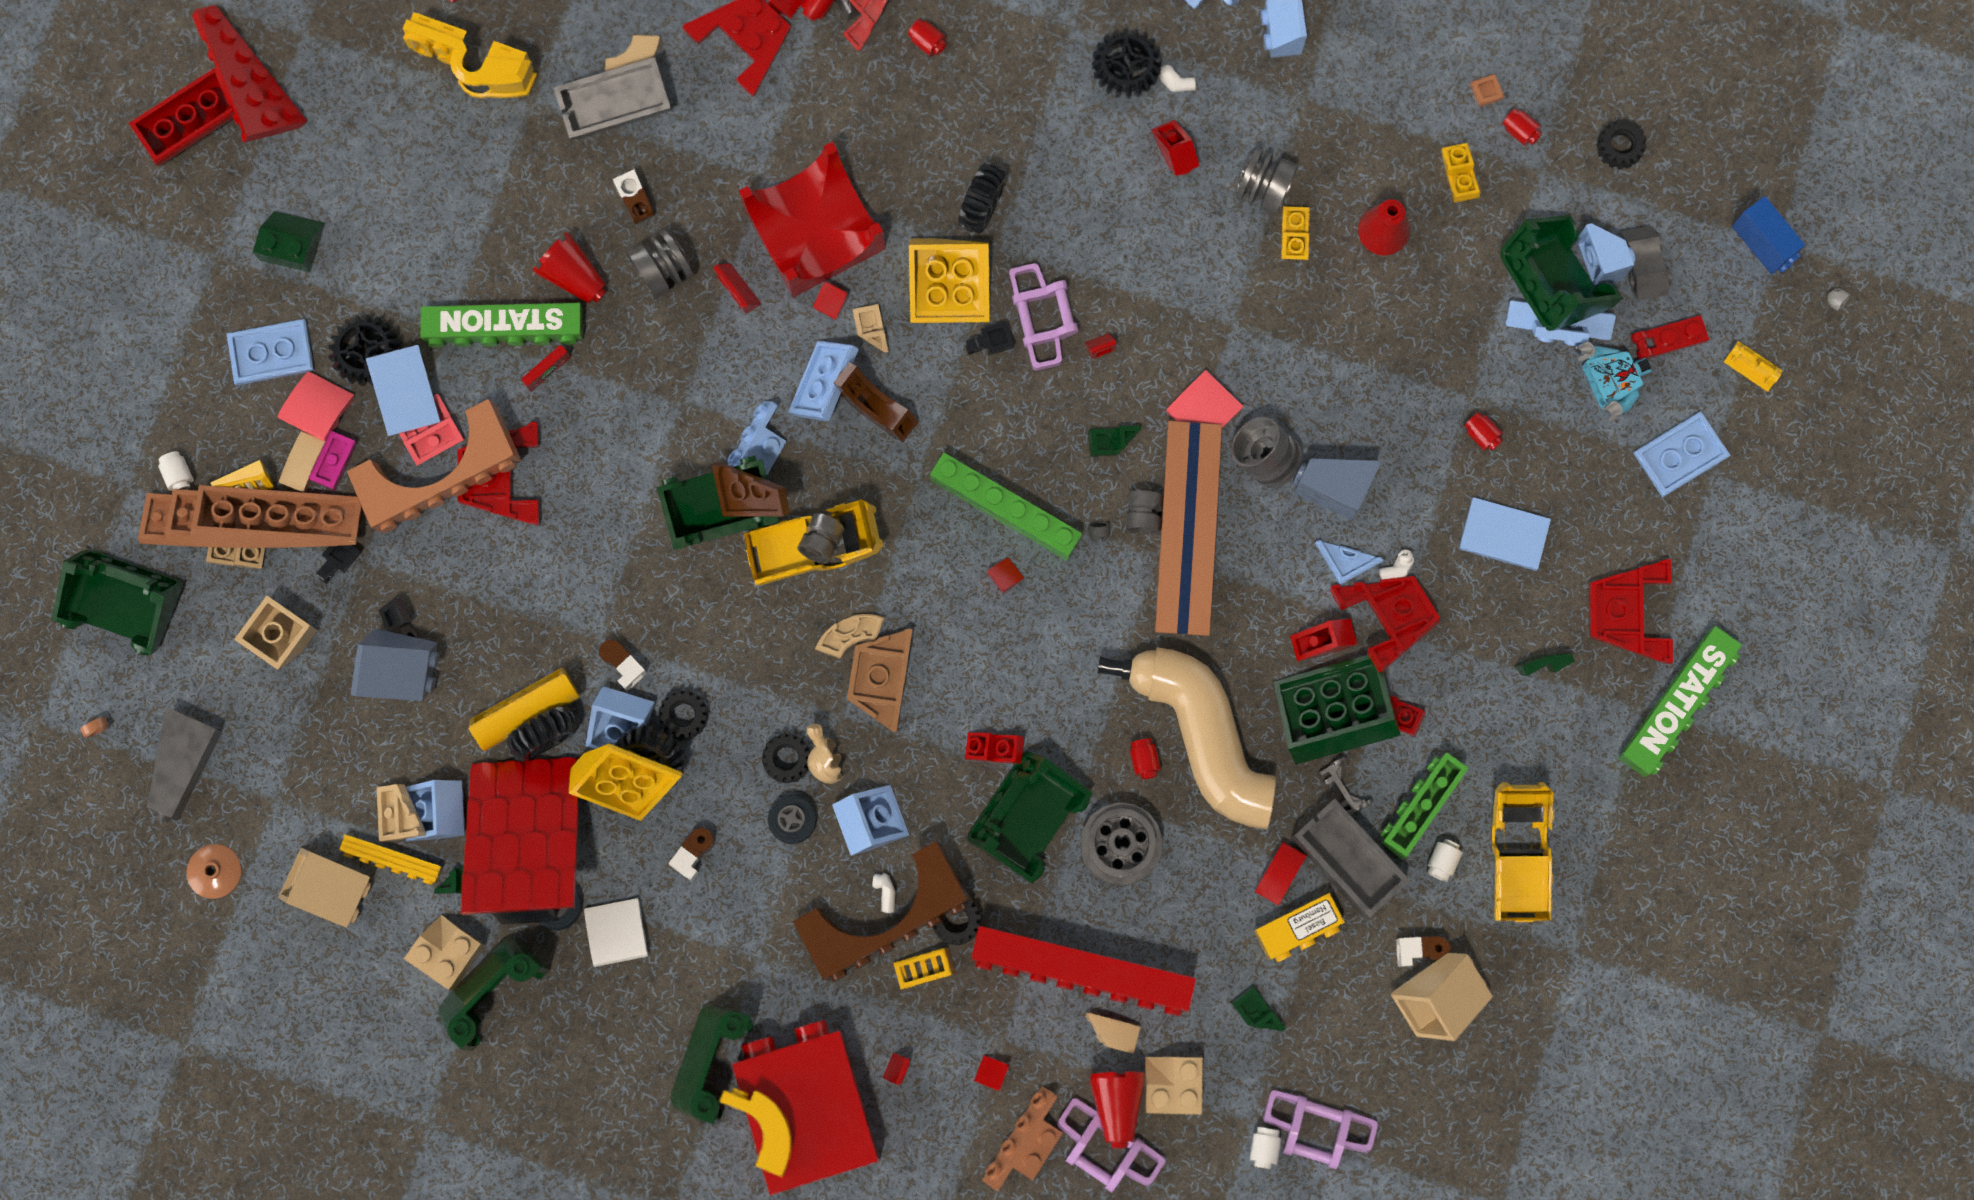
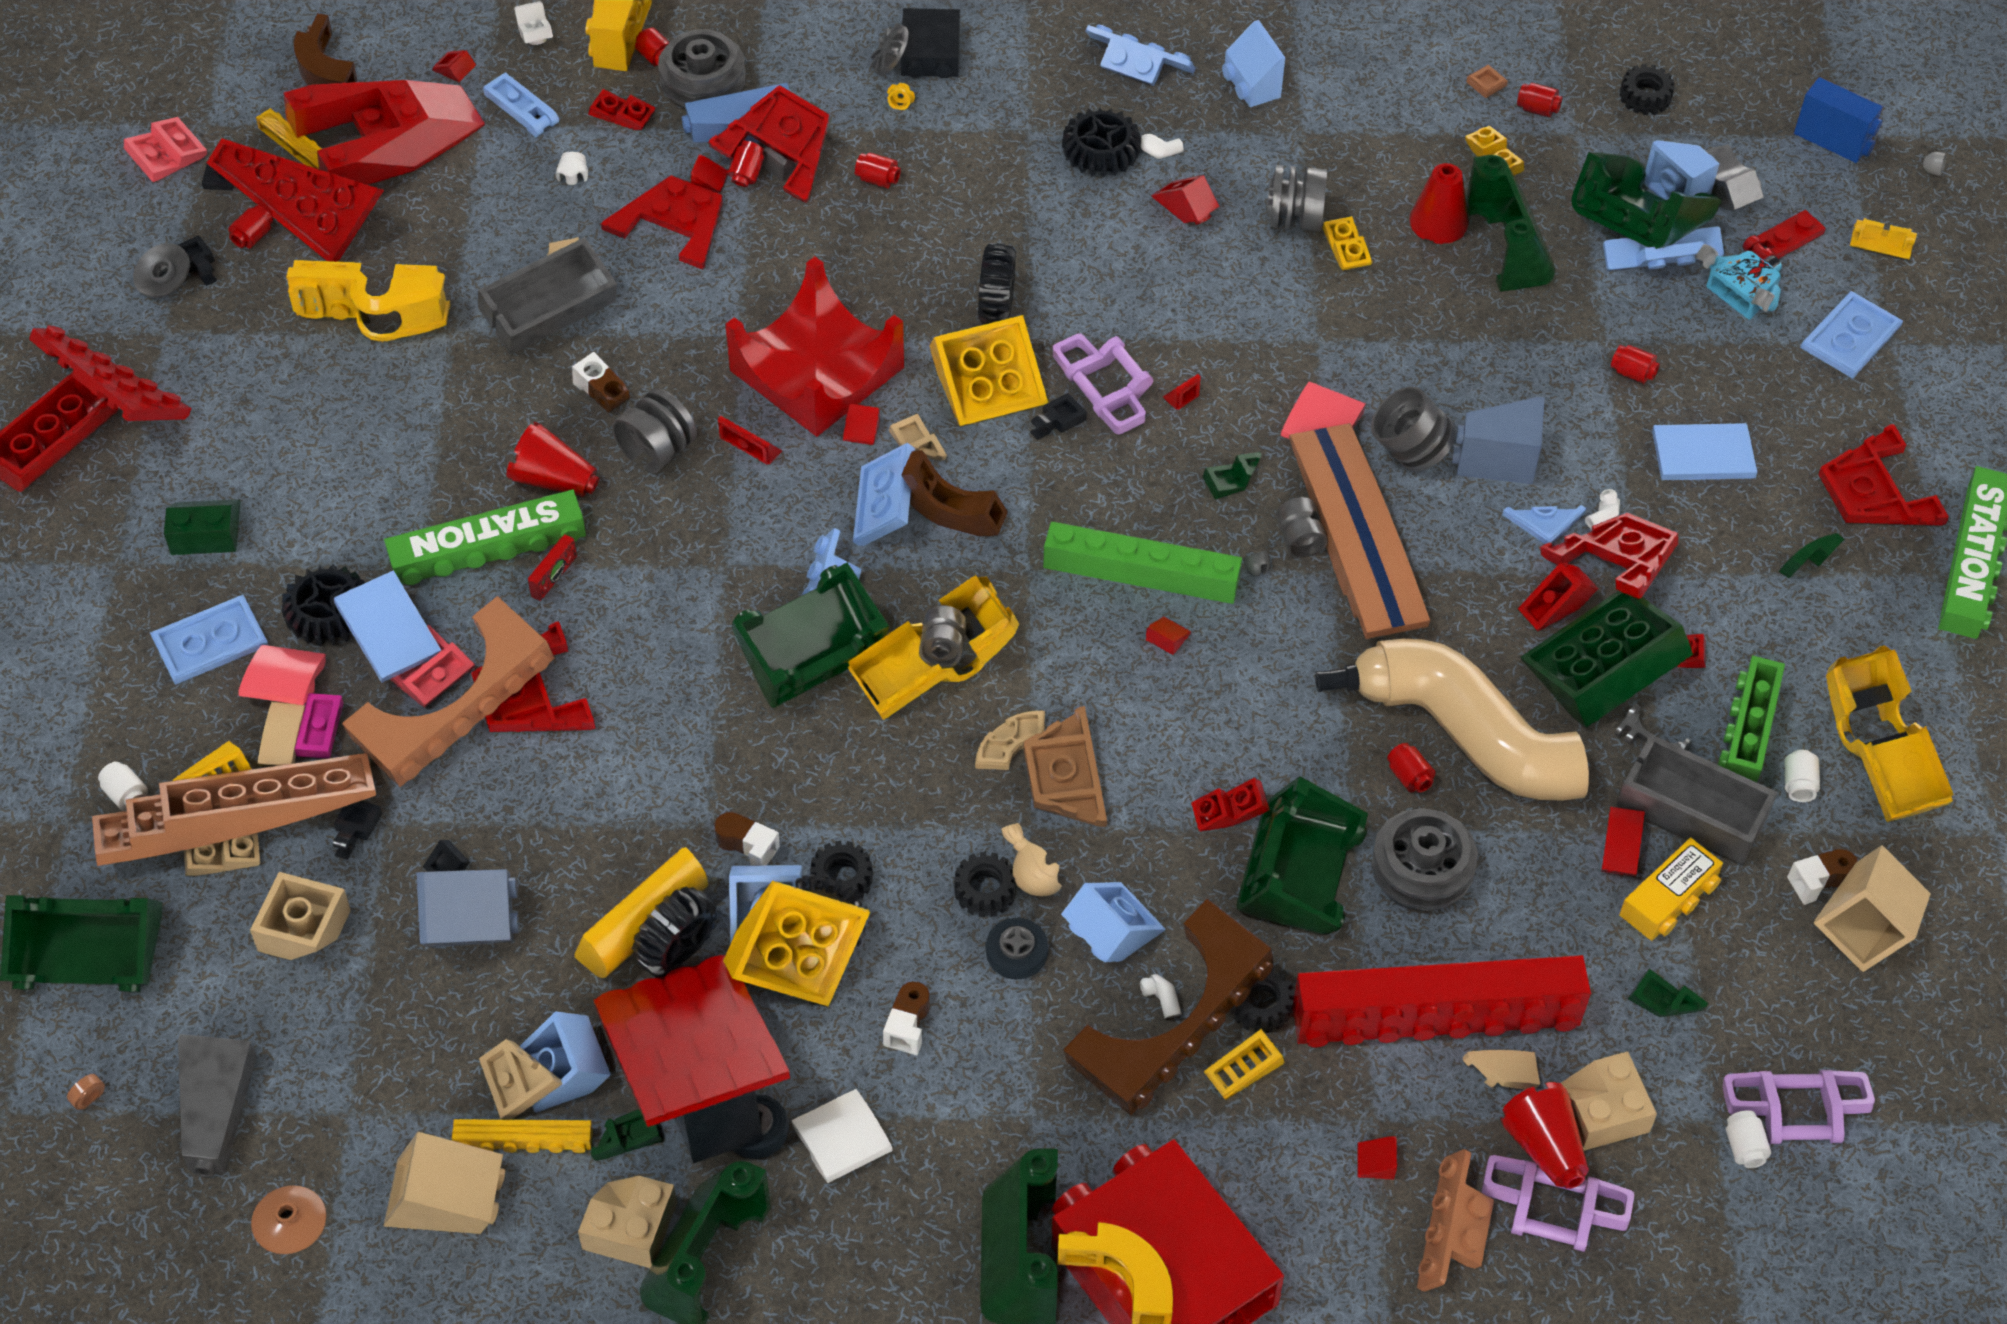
camera: 20 degrees left, 25 degrees down
(747, 494) = (844, 604): reddish brown wing -> none
(896, 1069) = (1258, 1187): red slope -> none
(1439, 298) = (1499, 198): none -> dark green windscreen

